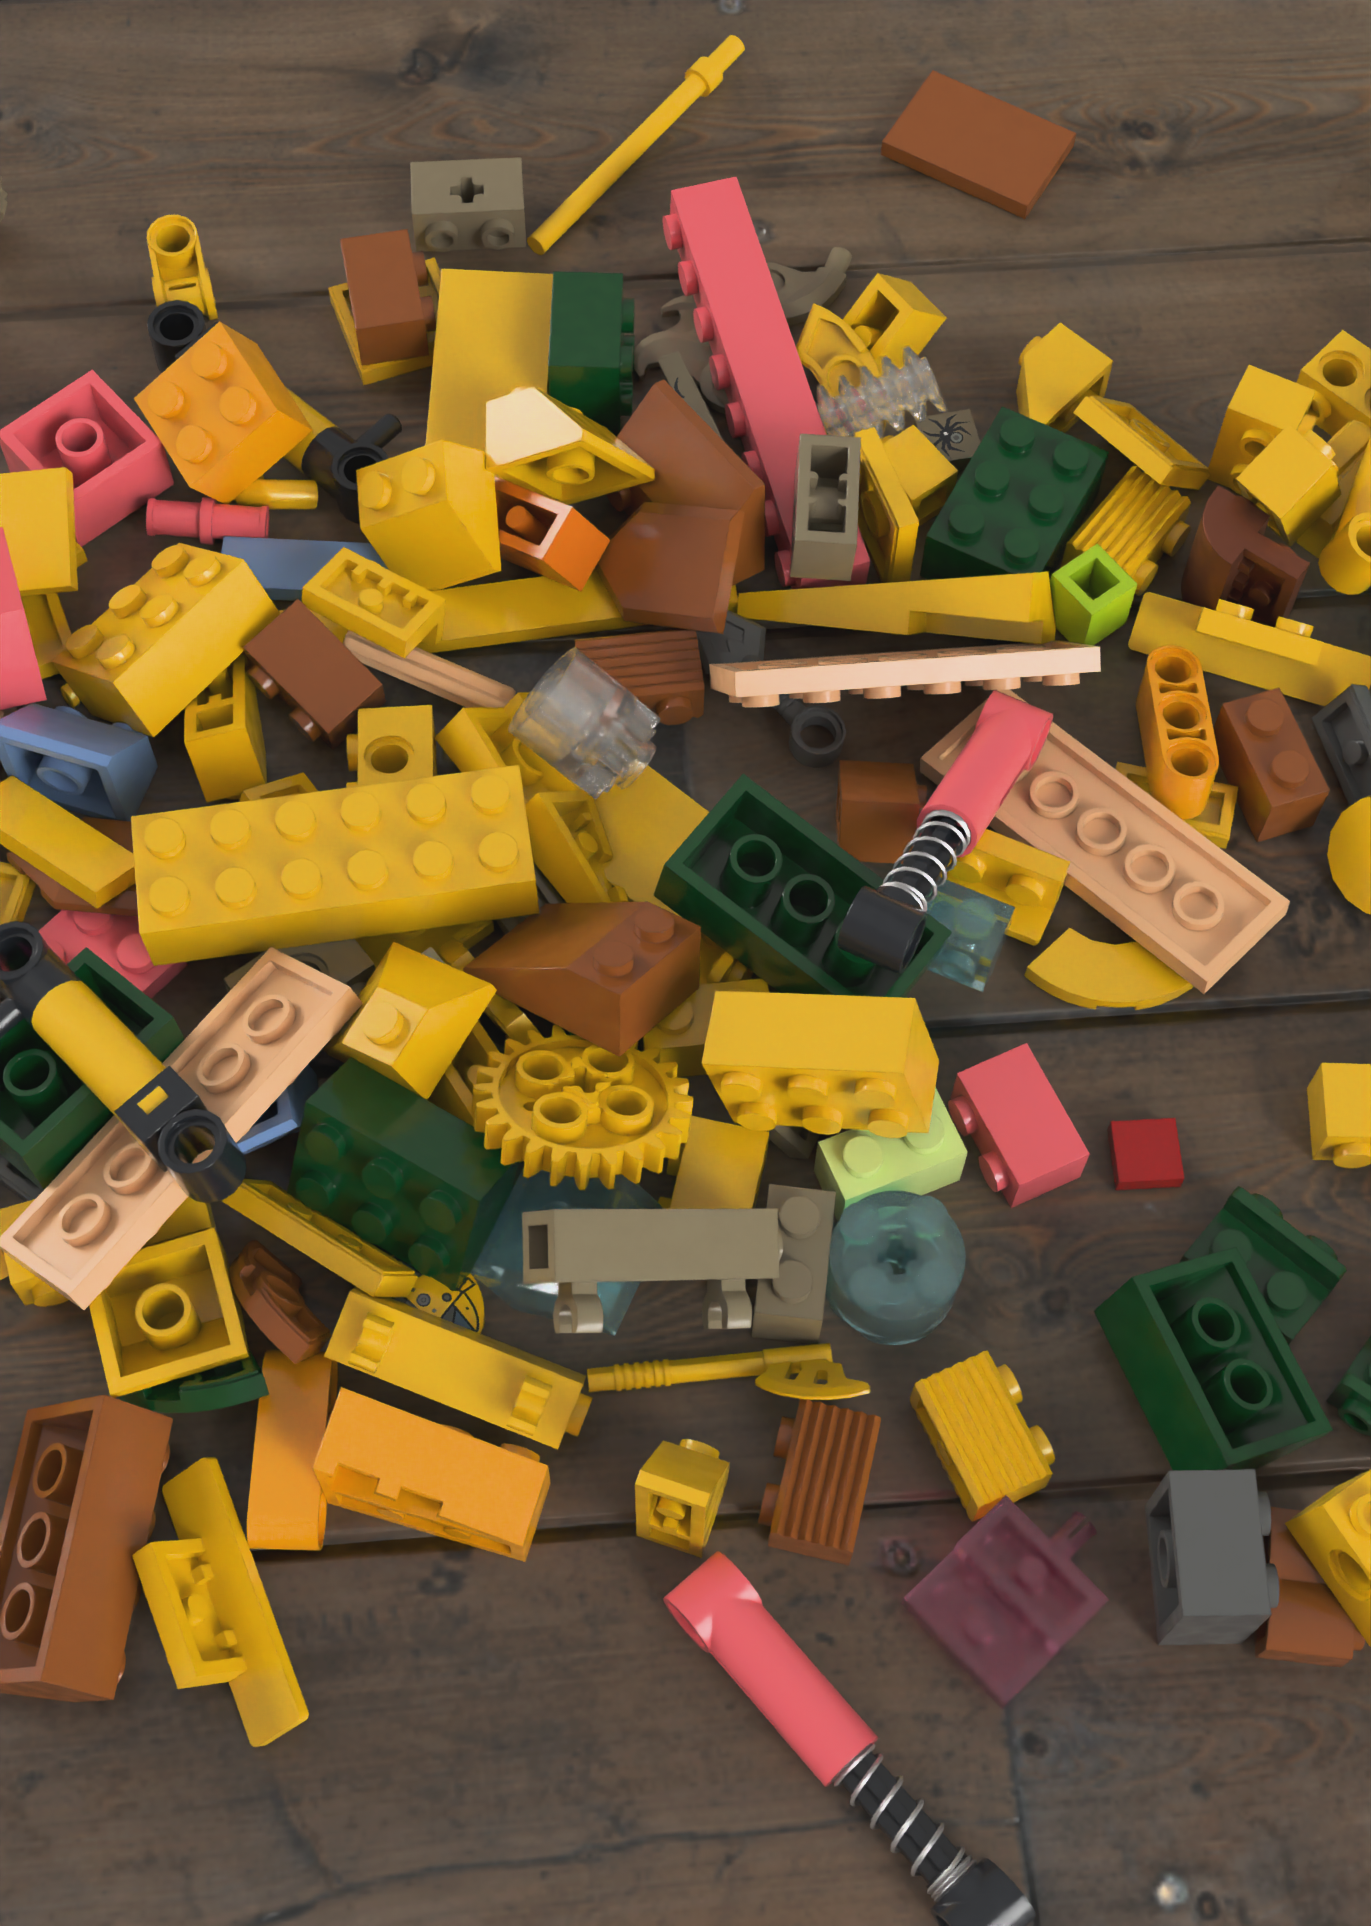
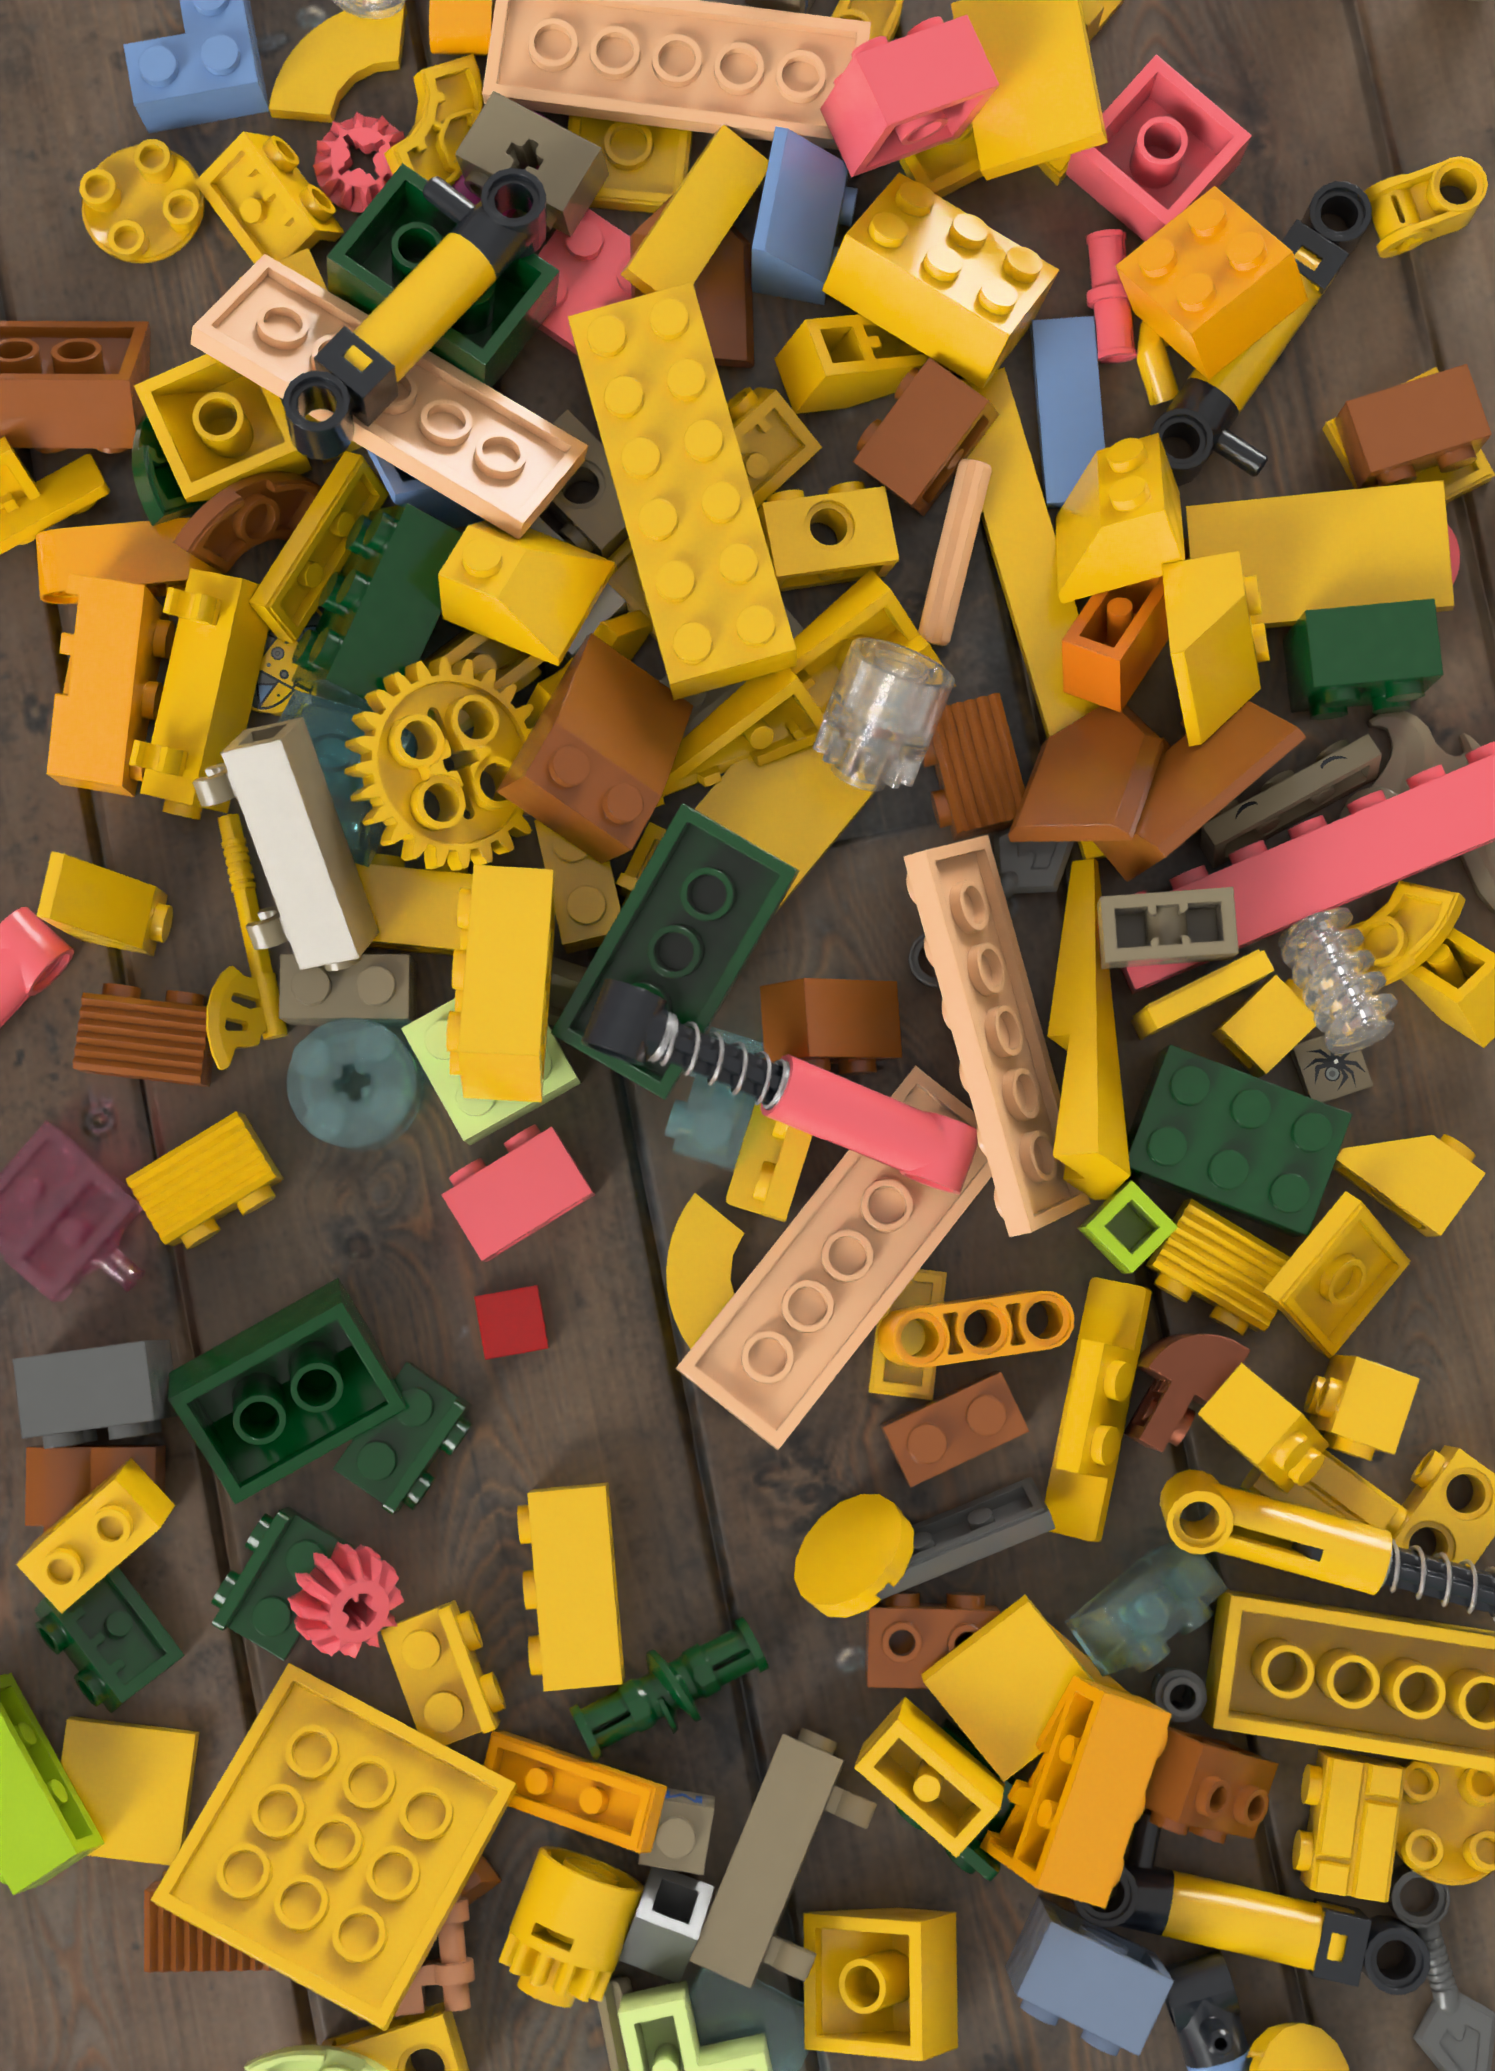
camera: 85 degrees right, 20 degrees up
(376, 603) = (1003, 481): yellow bracket -> none

